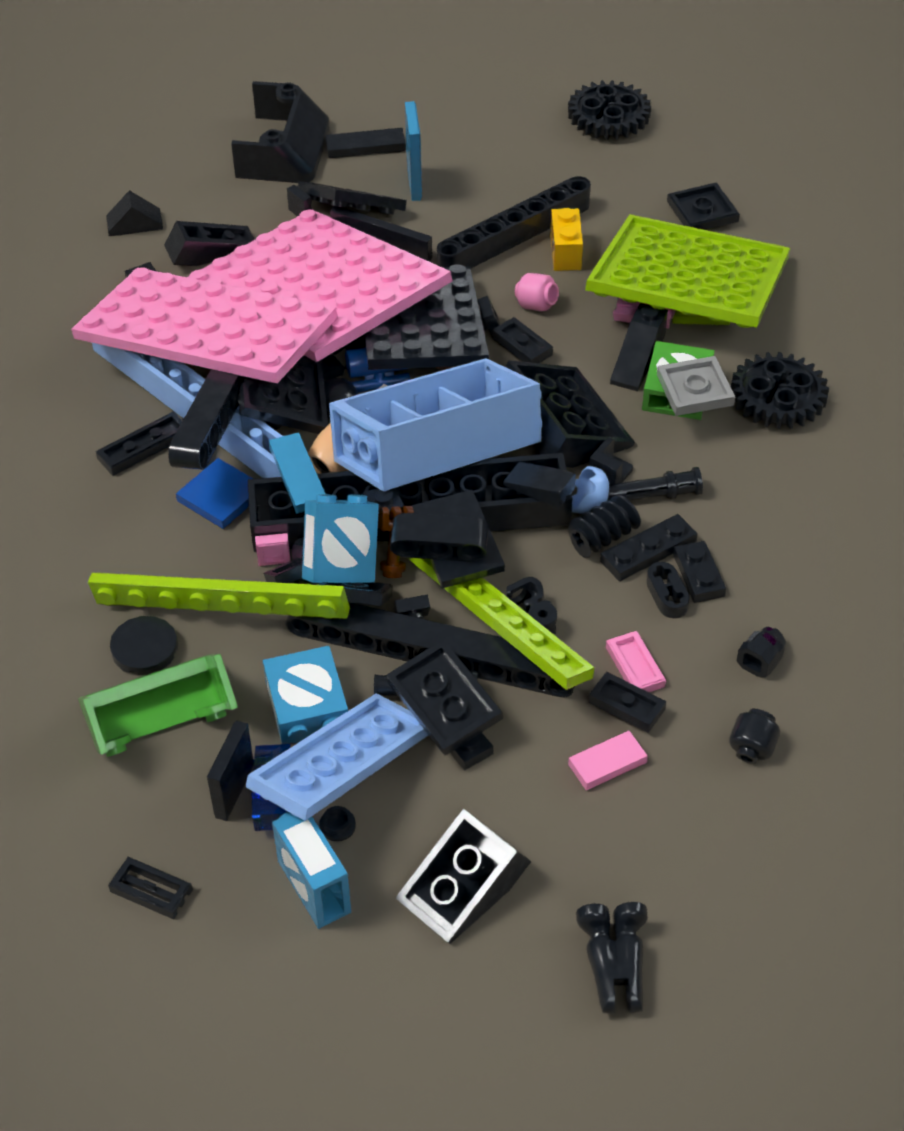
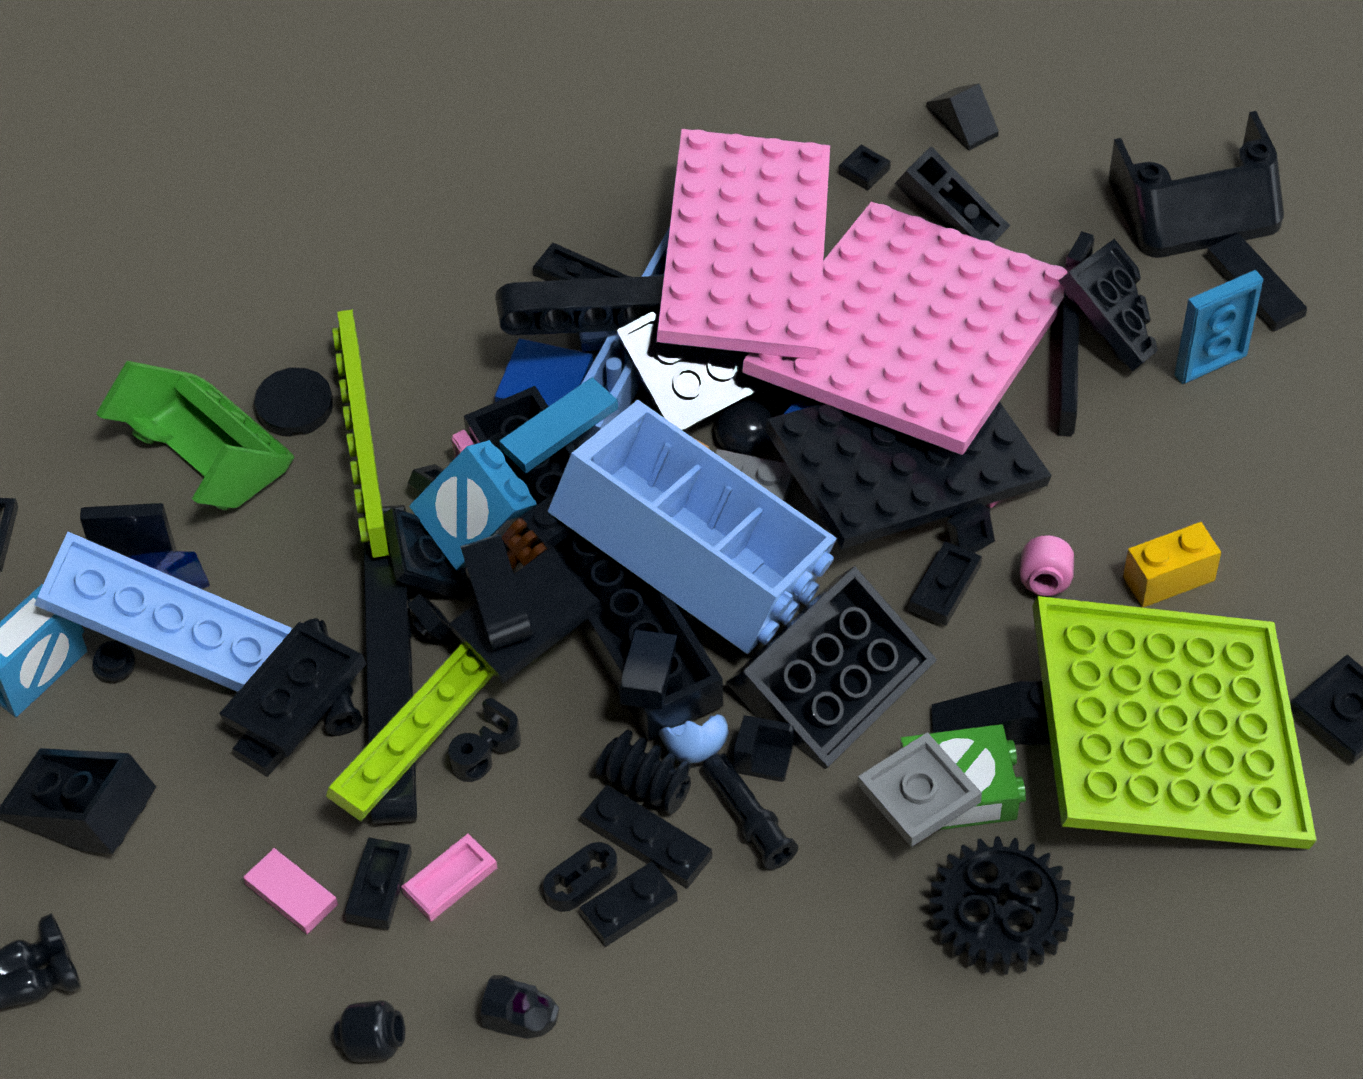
camera: 70 degrees right, 5 degrees up
(304, 692) = (270, 565): dark azure brick -> none
(513, 225) = (1171, 498): black beam -> none

